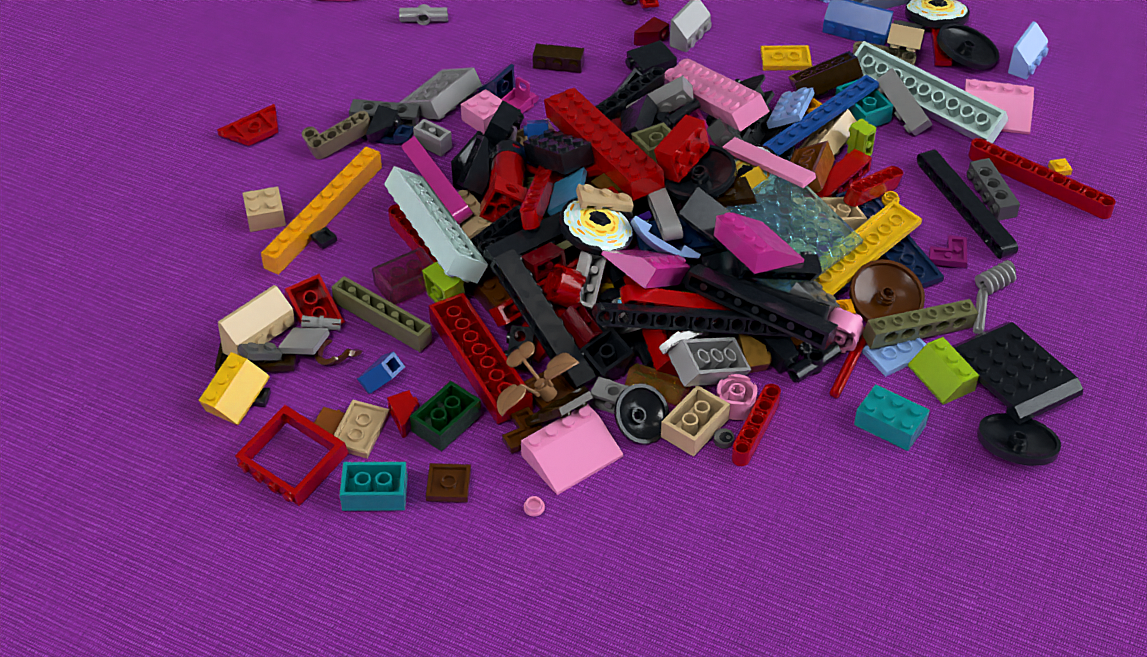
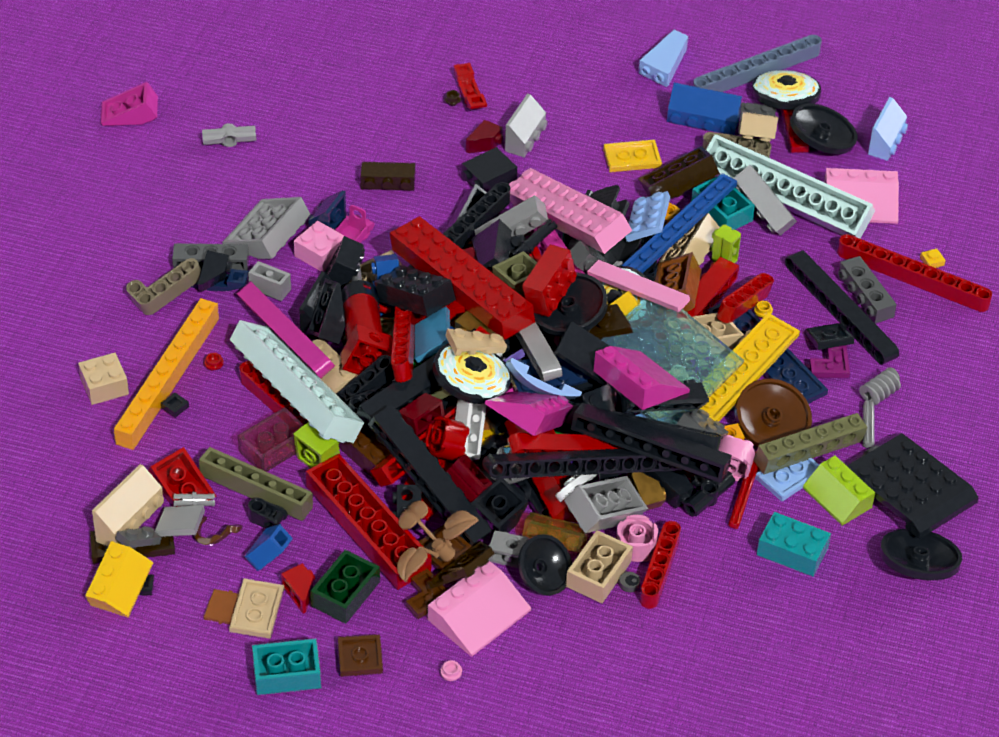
camera: 10 degrees left, 0 degrees up
(252, 127) = (67, 285): red wing -> none
(315, 477) = (205, 613): red window -> none
(368, 203) = (213, 361): none -> red plate
(385, 341) = (265, 513): none -> black piece
(951, 228) = (829, 336): none -> black tile

